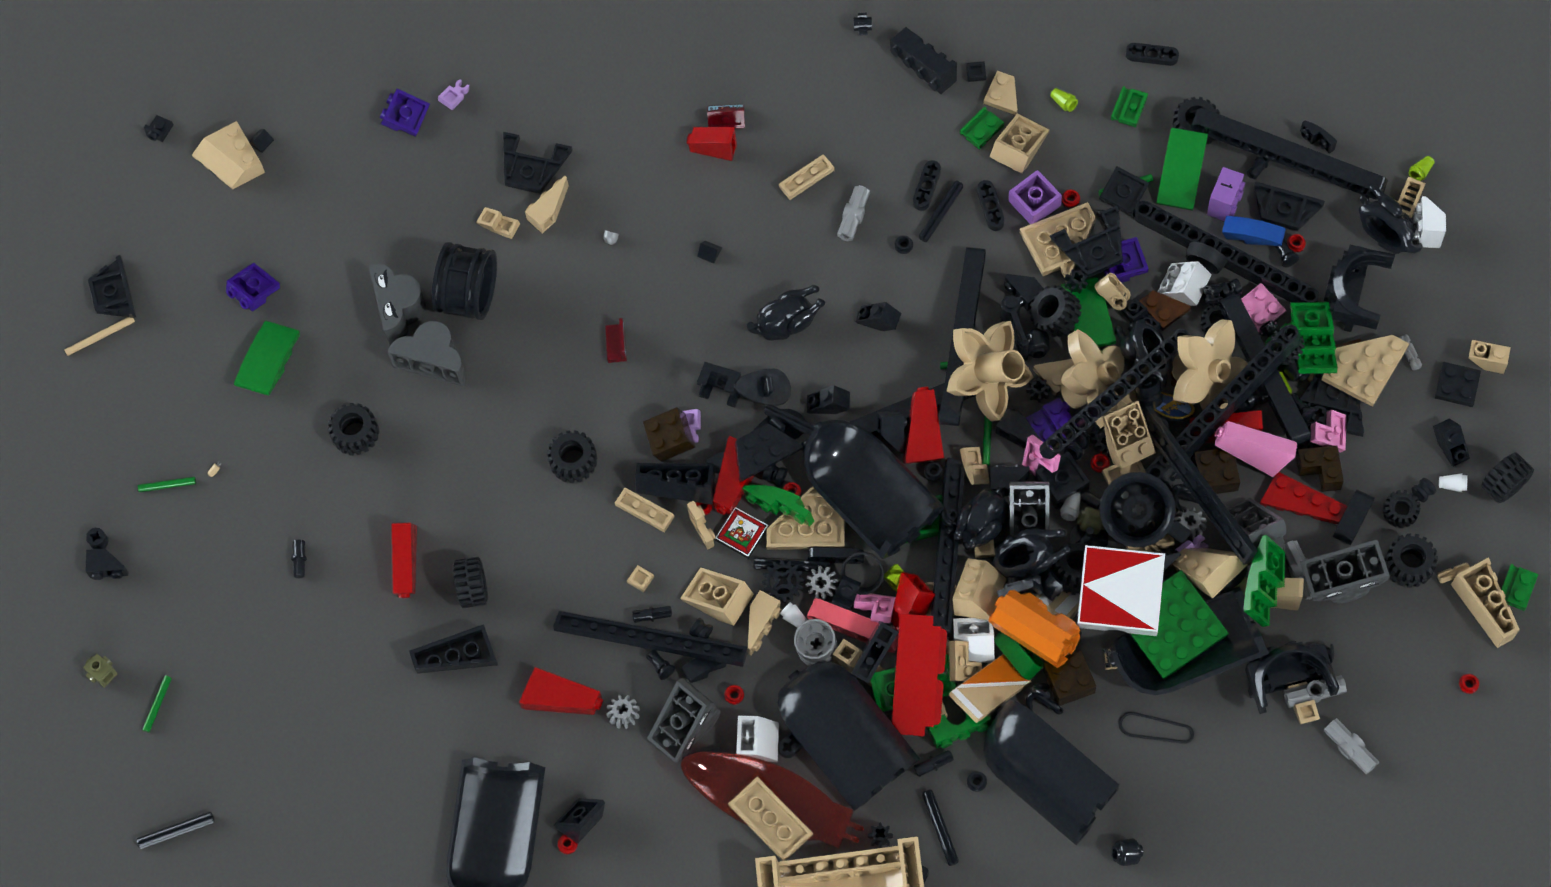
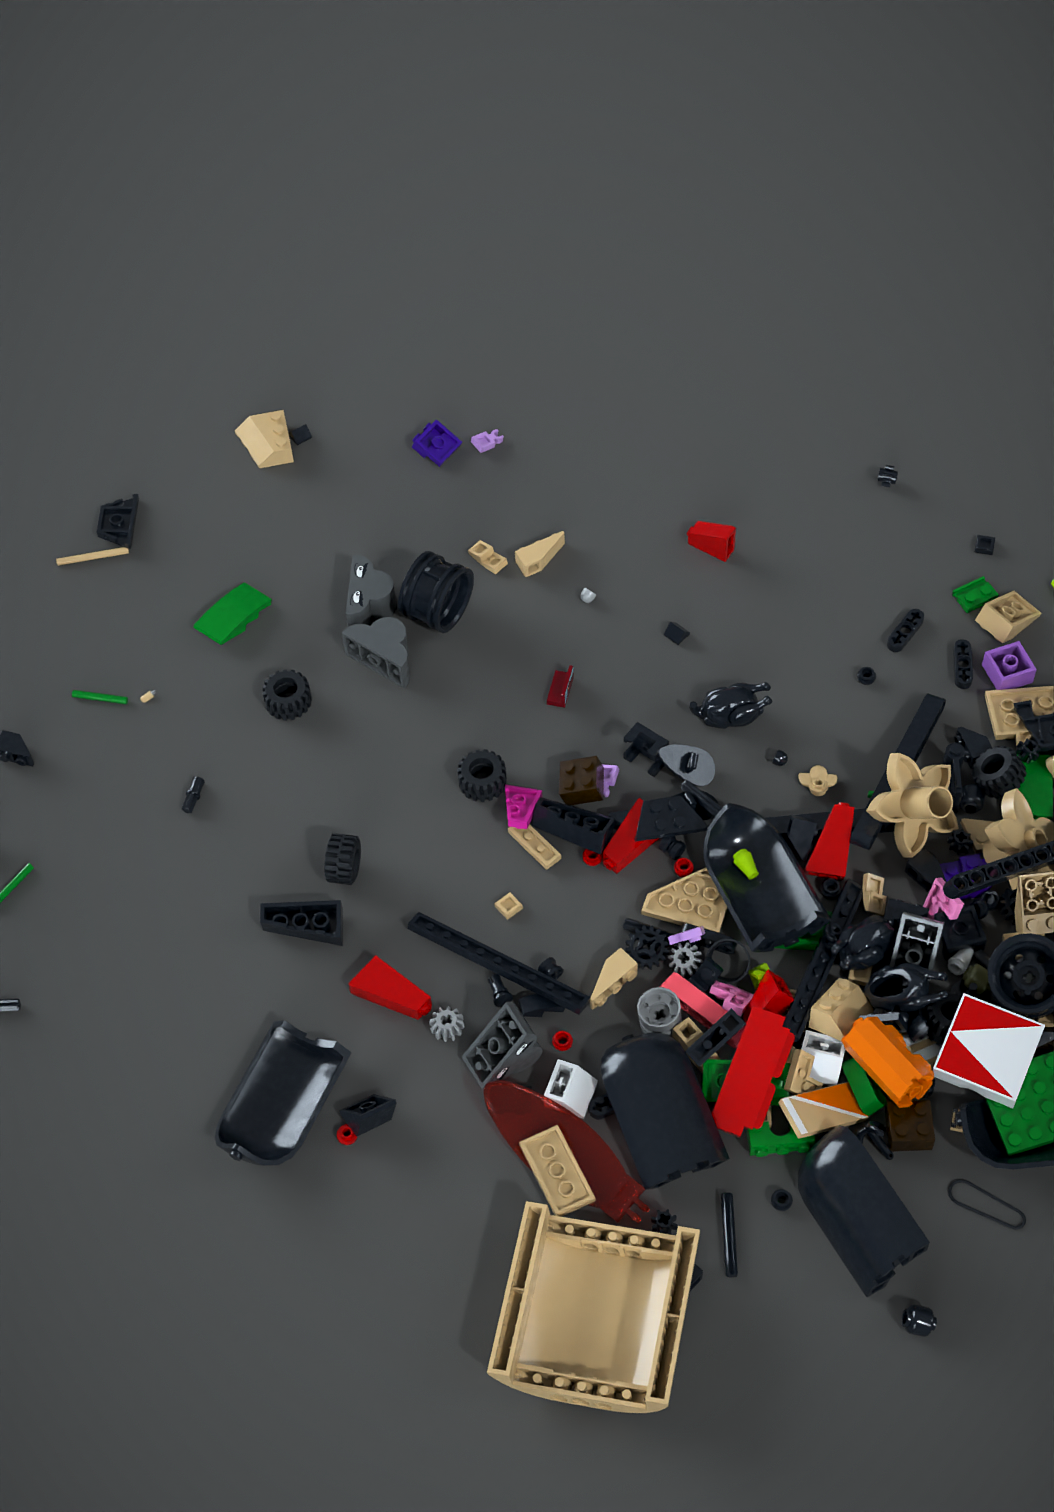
camera: 15 degrees right, 10 degrees down
(97, 543) = (12, 724): black wheel -> none
(158, 128) = (214, 402): black bracket -> none
(251, 287) = (242, 550): dark purple plate -> none
(404, 559) = (289, 820): red slope -> none
(530, 171) = (533, 521): black wing -> none
(619, 476) = (520, 805): none -> dark pink wing
(651, 614) = (507, 941): black axle -> none
(697, 517) = (583, 868): tan plate -> none
(718, 595) = (579, 942): tan slope -> none
(726, 116) = (739, 521): dark red panel -> none
(741, 532) = (621, 891): tile -> none
(778, 499) = (667, 869): green slope -> none
(793, 615) = (645, 980): white cone -> none
(806, 177) = (791, 592): tan plate -> none
(821, 558) = (691, 935): none -> lavender plate
(828, 401) = (747, 793): black slope -> none
(847, 354) = (780, 758): none -> black hinge
(849, 472) = (745, 862): none -> lime cone
(853, 213) = (826, 635): light grey piece -> none
(878, 316) = (821, 732): black slope -> none
(889, 366) = (817, 780): none -> tan plate
(924, 60) = (937, 521): black wedge -> none
(933, 763) = (742, 1168): black axle -> none
(941, 211) = (912, 656): black axle -> none
(986, 441) = (893, 875): green bar -> none
(1002, 93) = (1004, 570): tan wing -> none
(1070, 194) = (1044, 674): red plate -> none
(1099, 458) = (1002, 922): red plate -> none

